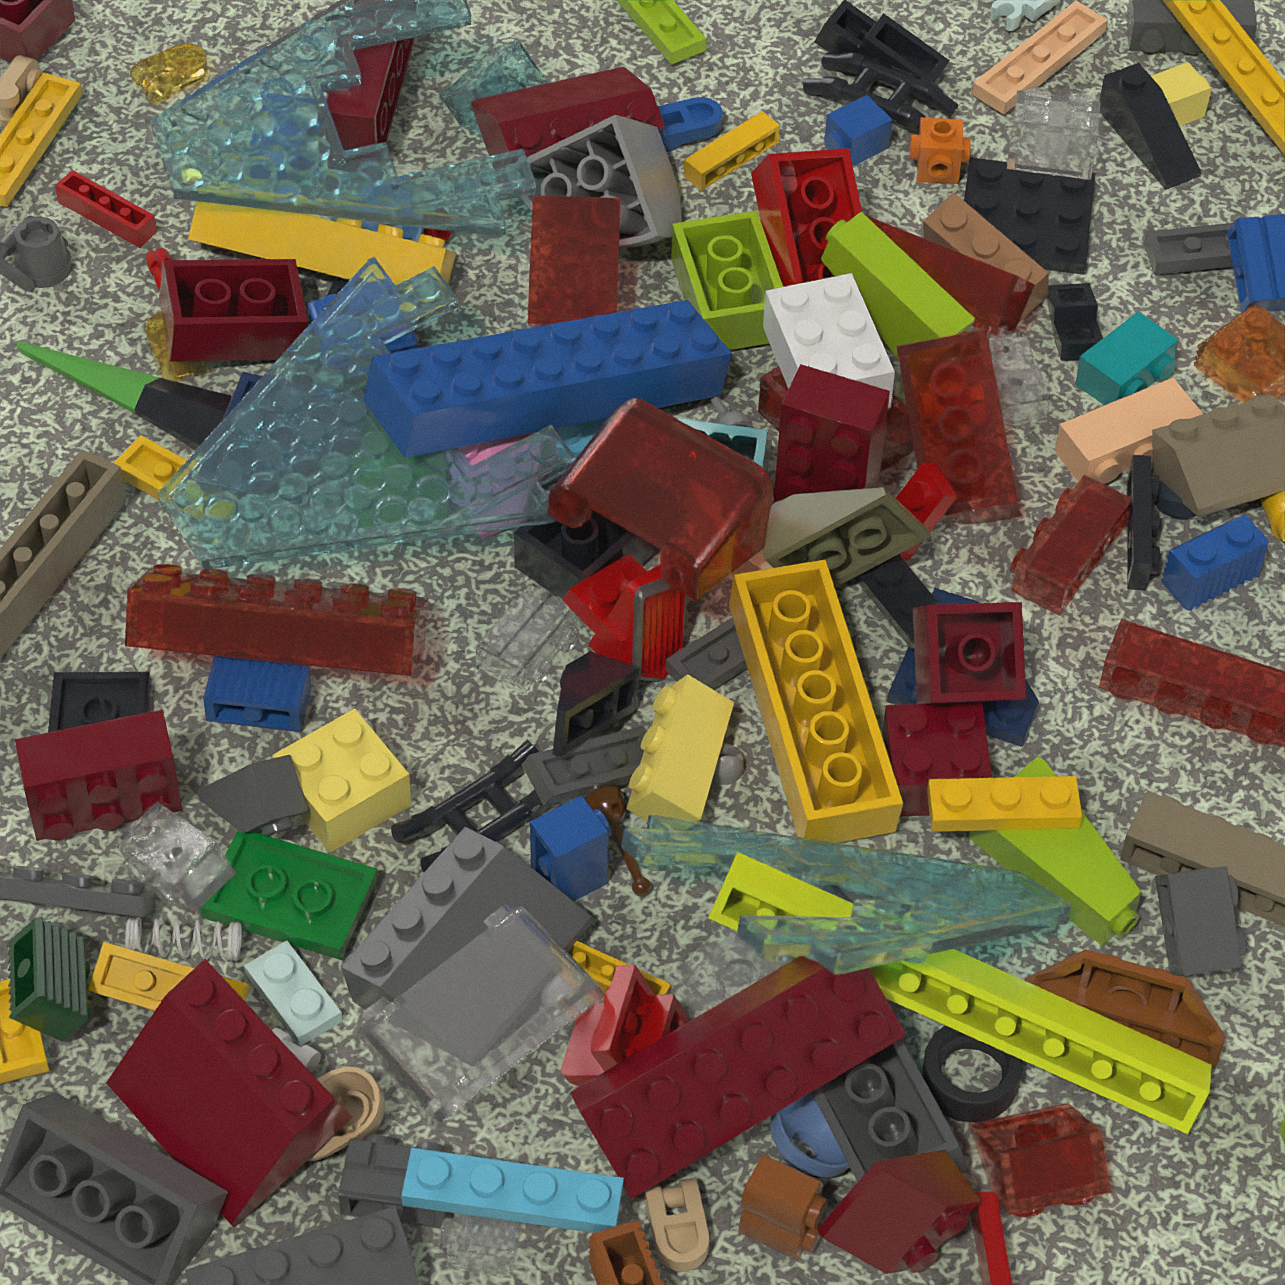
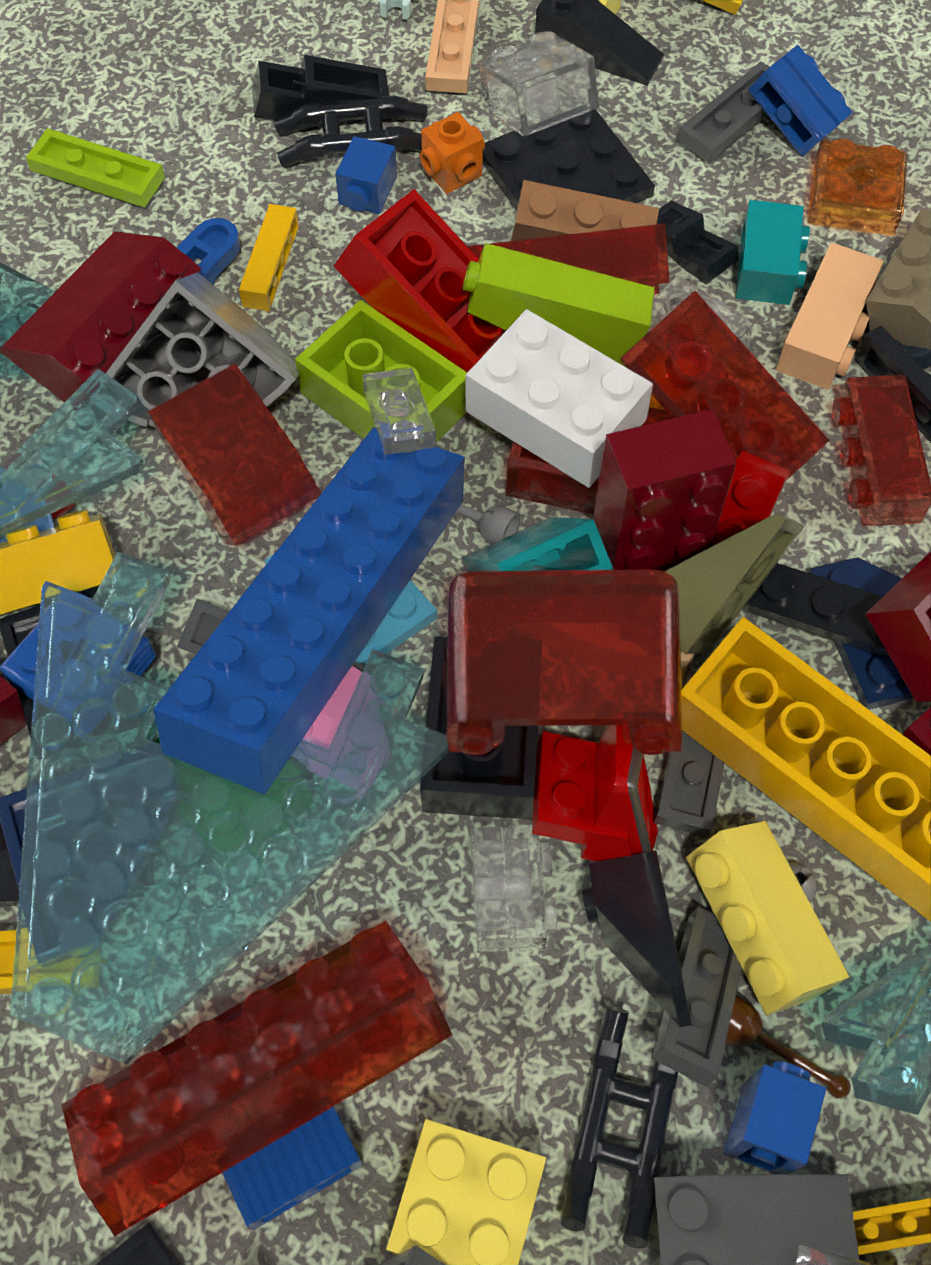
camera: 35 degrees left, 10 degrees up
(706, 293) = (399, 411): none -> clear plate

